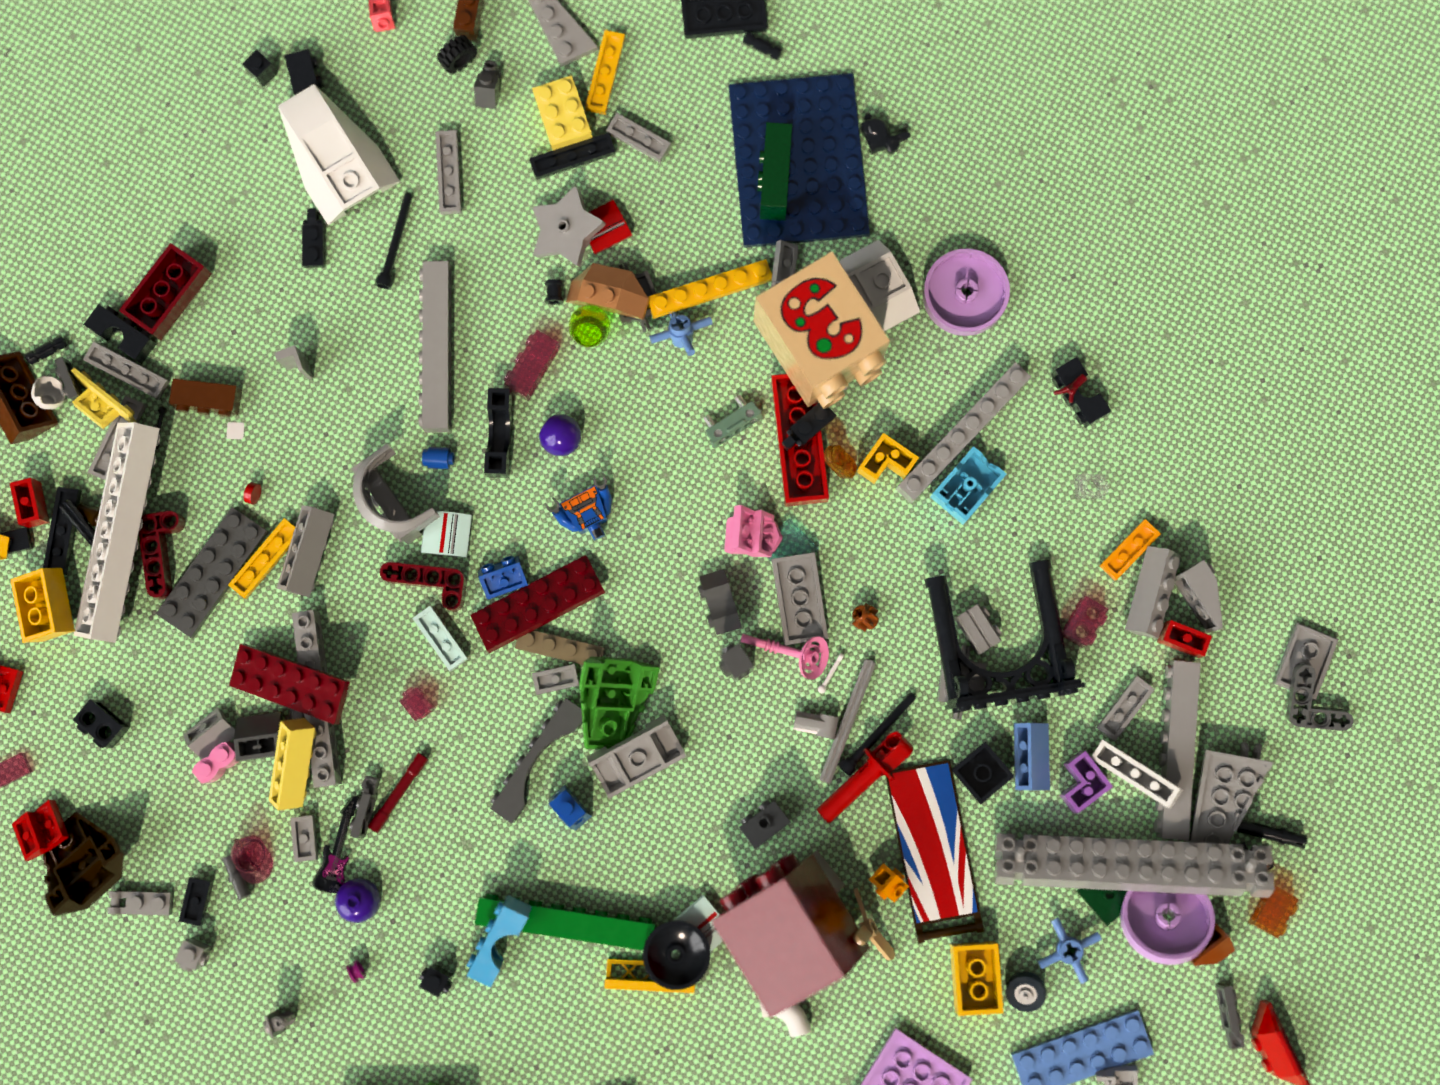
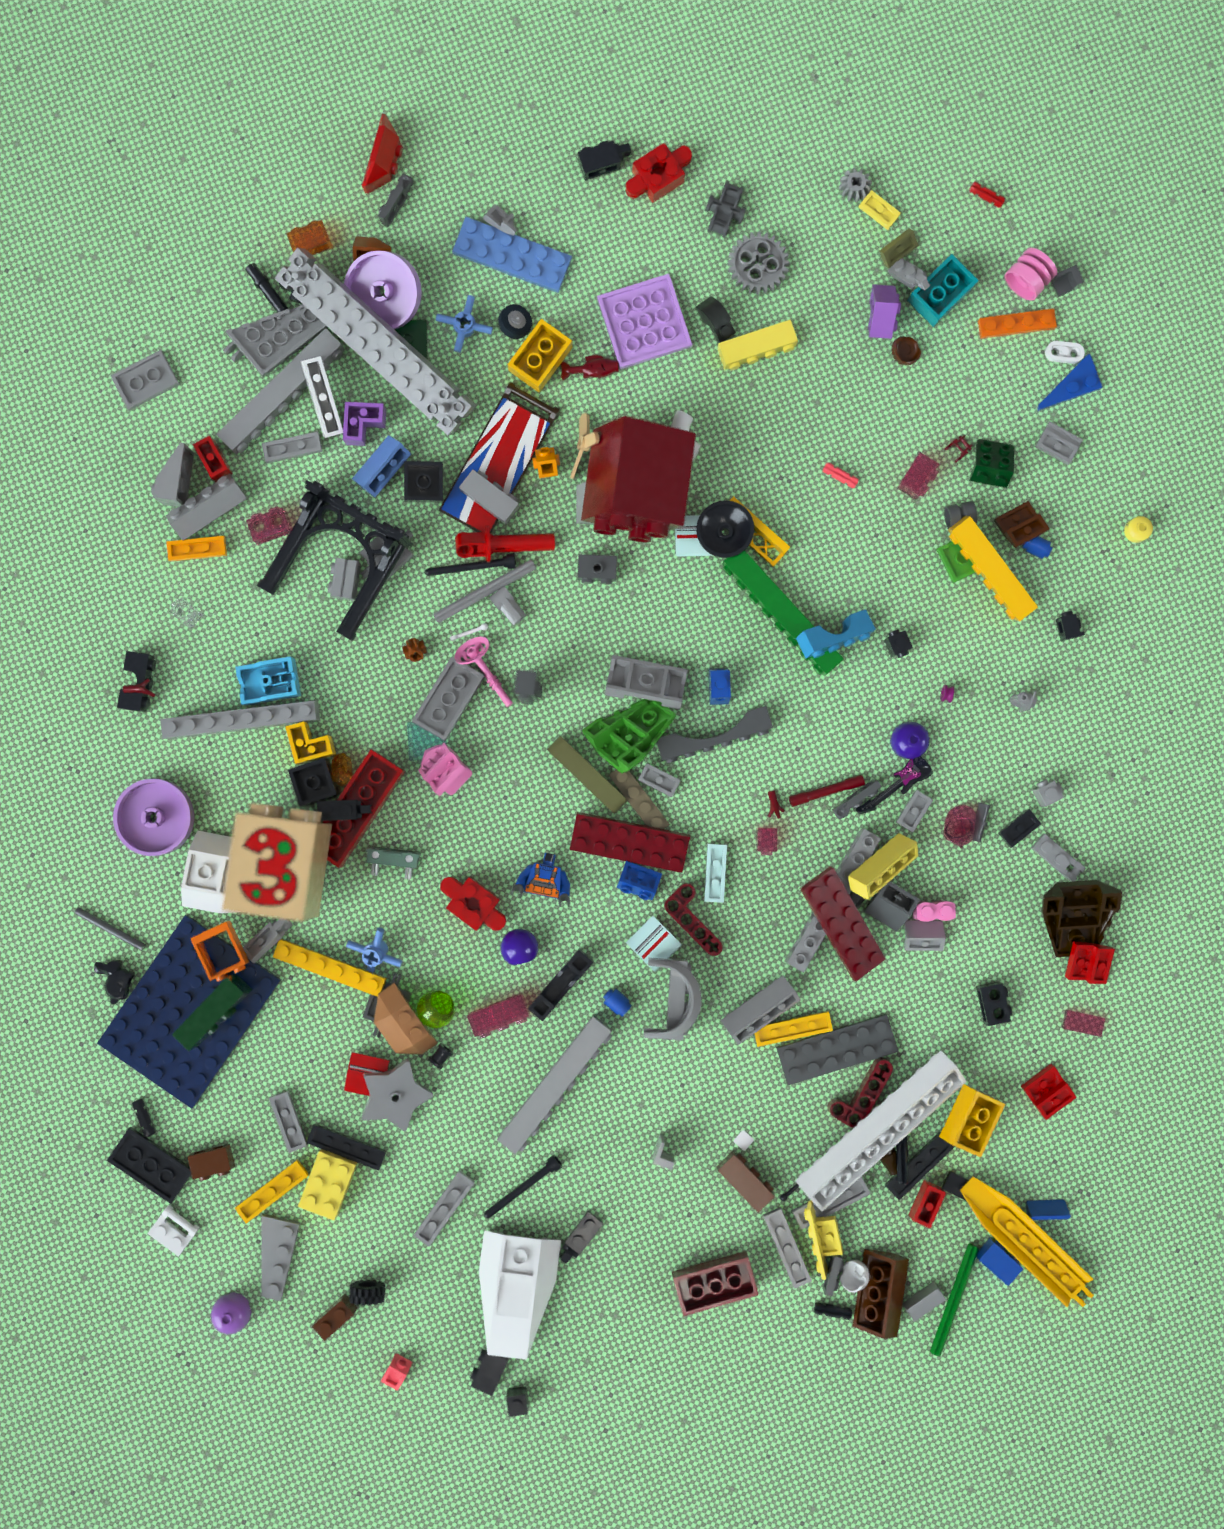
camera: 150 degrees left, 5 degrees up
(134, 343) = (775, 1295): black arch -> none
(252, 493) = (766, 1083): red tile -> none
(434, 741) = (774, 805): none -> dark red bar
(487, 86) = (364, 1250): dark grey brick -> none
(623, 632) = (587, 774): none -> olive beam
(631, 440) = (473, 903): none -> red brick
(675, 55) = (211, 1161): none -> reddish brown brick
(720, 602) = (504, 741): dark grey brick -> none
(822, 211) = (205, 958): none -> orange window
(855, 430) = (313, 782): none -> black brick
(913, 809) = (490, 496): none -> light grey brick
(919, 1010) = (595, 367): none -> dark red animal
(922, 172) = (110, 929): none -> dark grey bar
(1309, 711) = (171, 350): dark grey beam -> none

